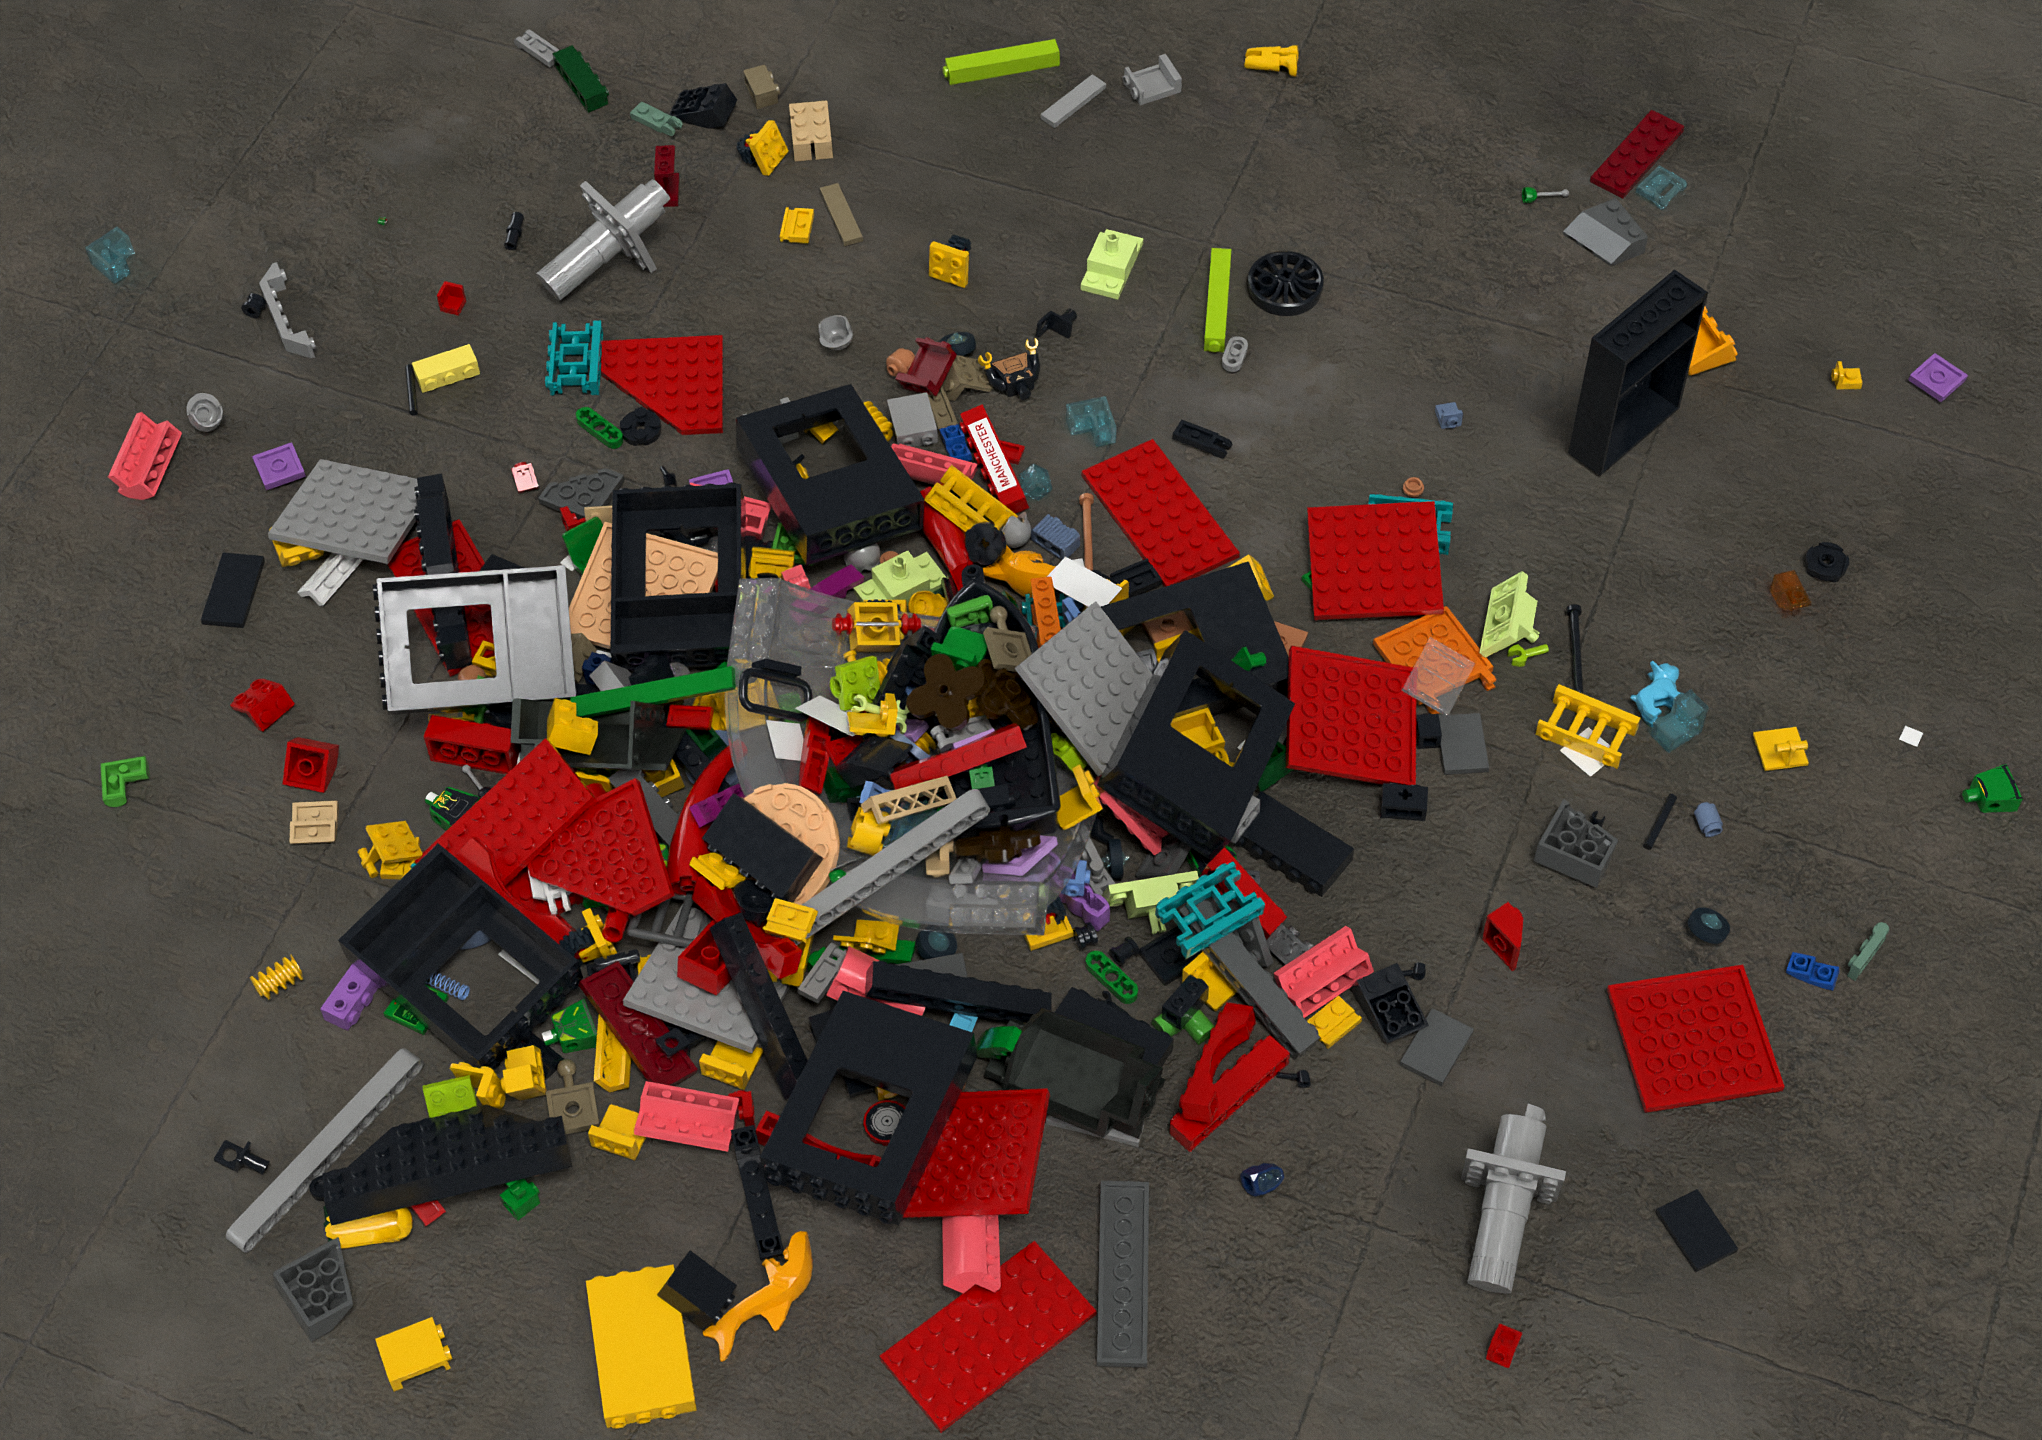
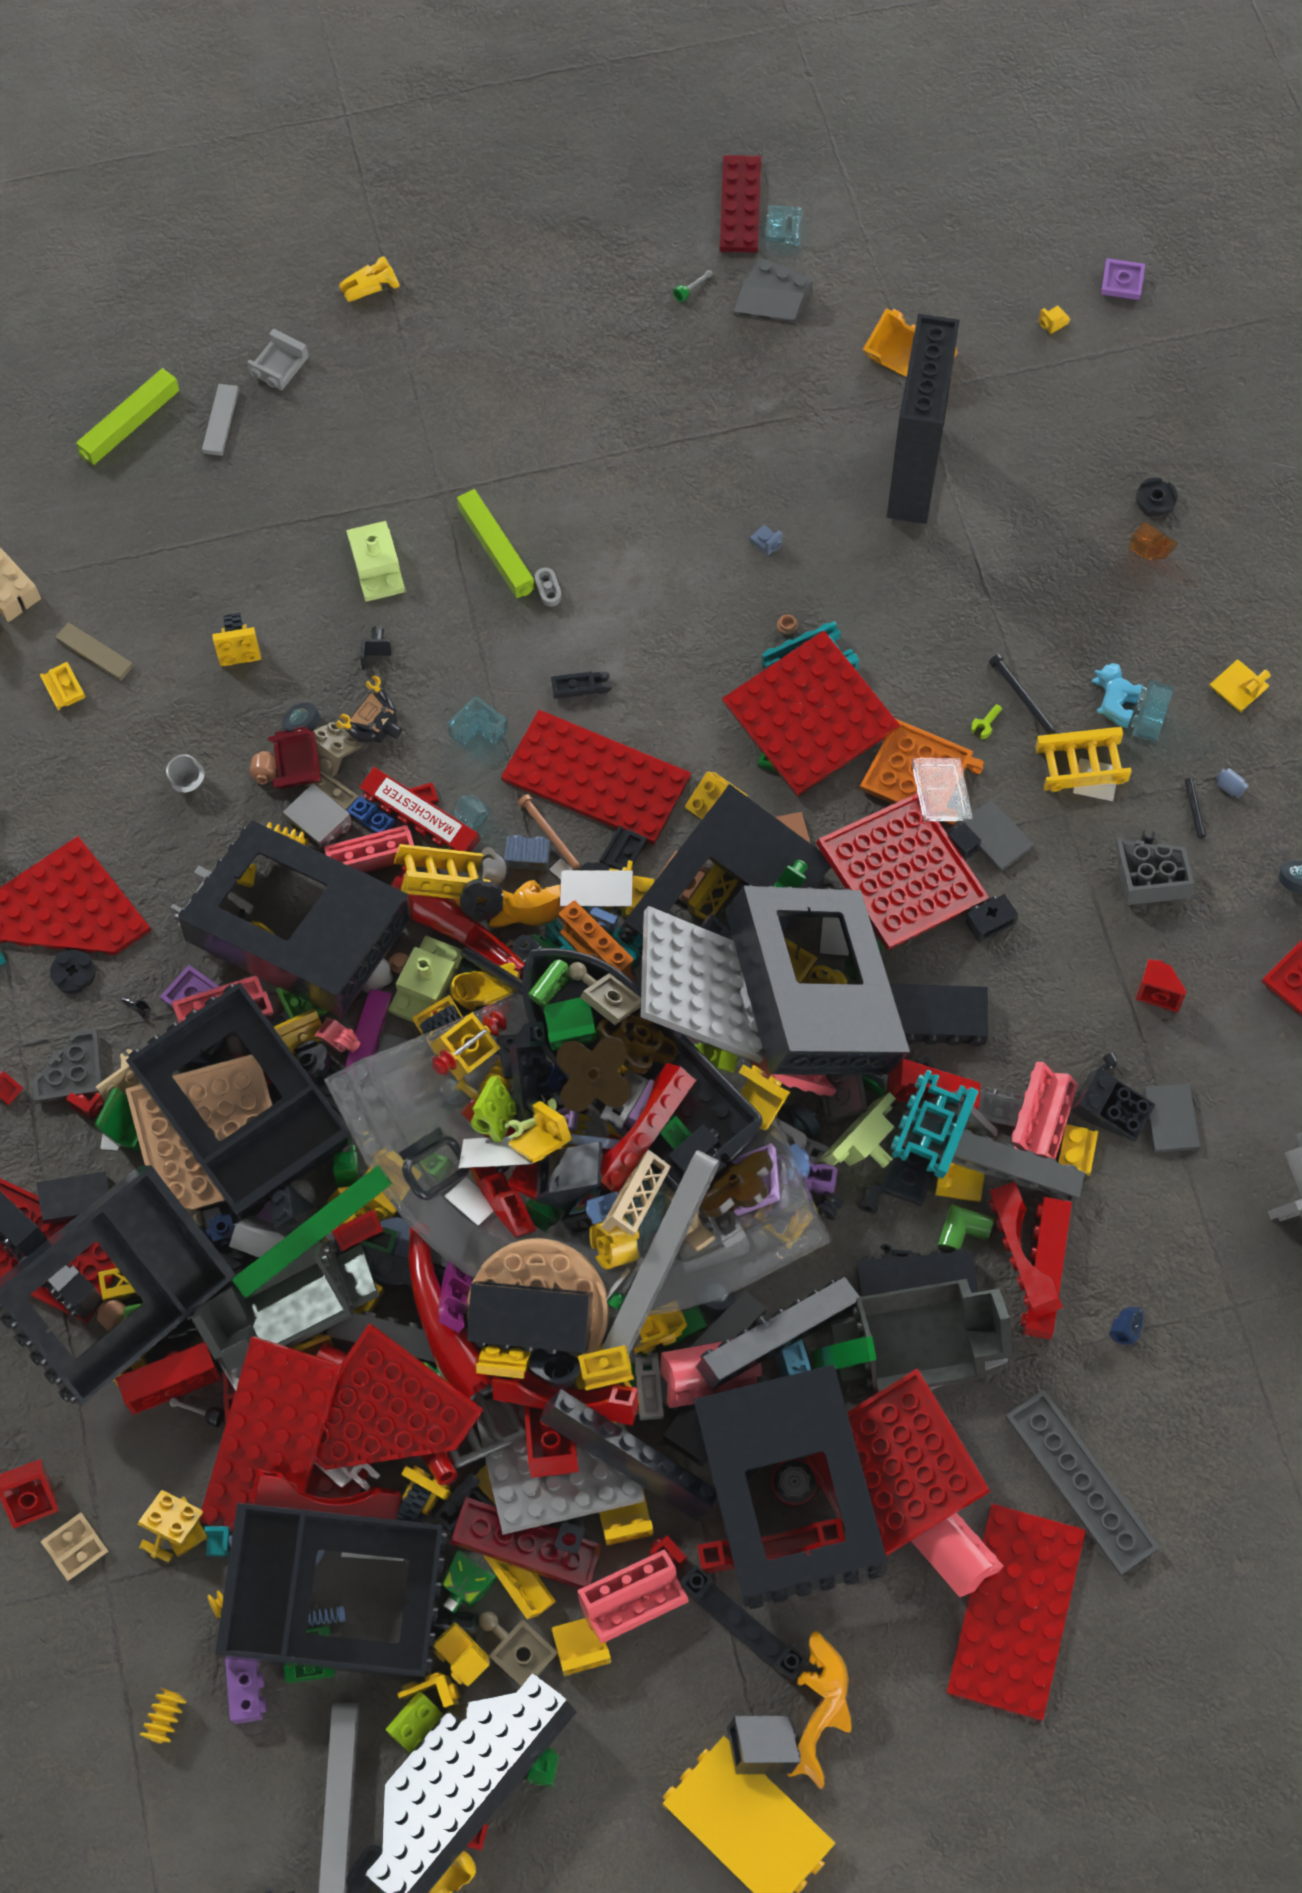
camera: 35 degrees left, 10 degrees up
(449, 806) = (194, 1449): torso -> none
(568, 730) = (258, 1314): yellow brick -> none
(602, 435) = (17, 999): green beam -> none
(1115, 986) = (891, 1237): green beam -> none
(1185, 1002) = (960, 1213): black brick -> none
(1285, 282) = (540, 493): black piece -> none
(1301, 1076) = (1091, 1214): black hand -> none
(1509, 616) = (956, 699): yellowish green brick -> none

